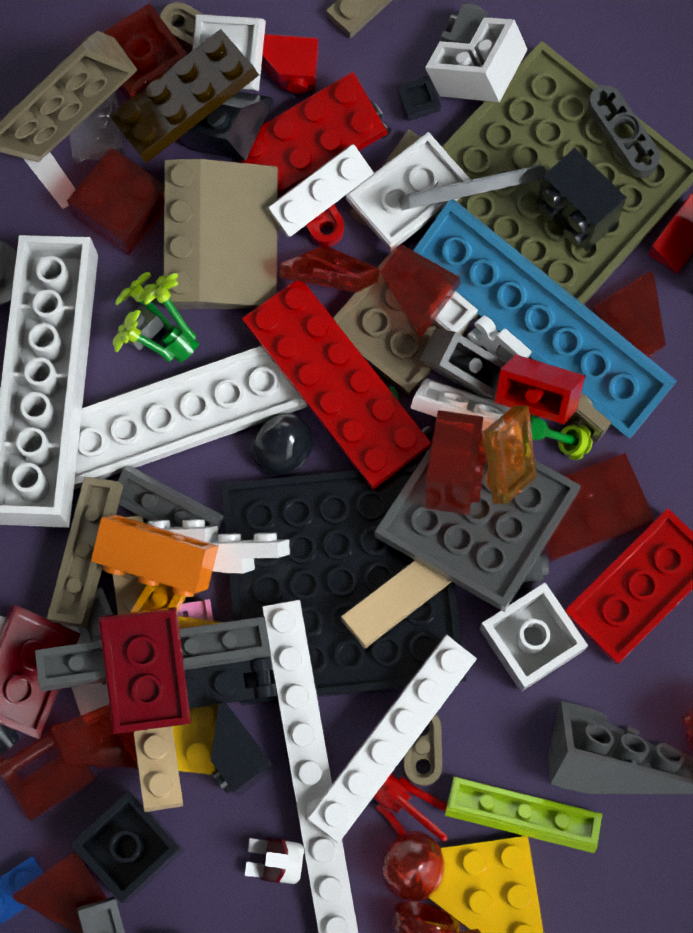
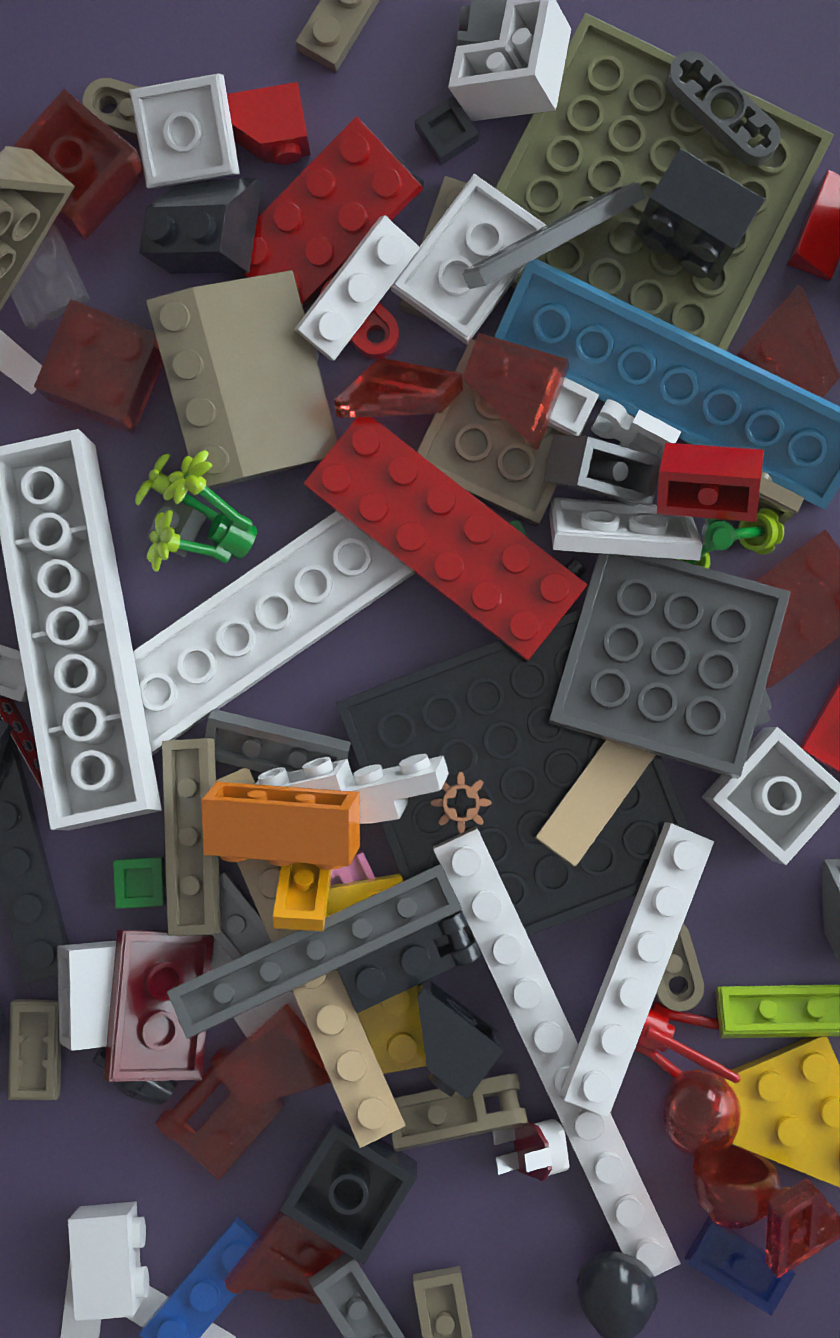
camera: 20 degrees left, 10 degrees up
(36, 579) = (139, 882): none -> green plate
(144, 670) = (312, 980): dark red tile -> none
(184, 95) = (146, 205): dark brown plate -> none
(226, 816) = (438, 1118): none -> dark tan plate
(282, 444) = (396, 630): black hat -> none
(298, 586) = (470, 812): none -> nougat gear
(455, 463) = (634, 608): clear red brick -> none
(509, 454) = (702, 583): clear orange plate -> none

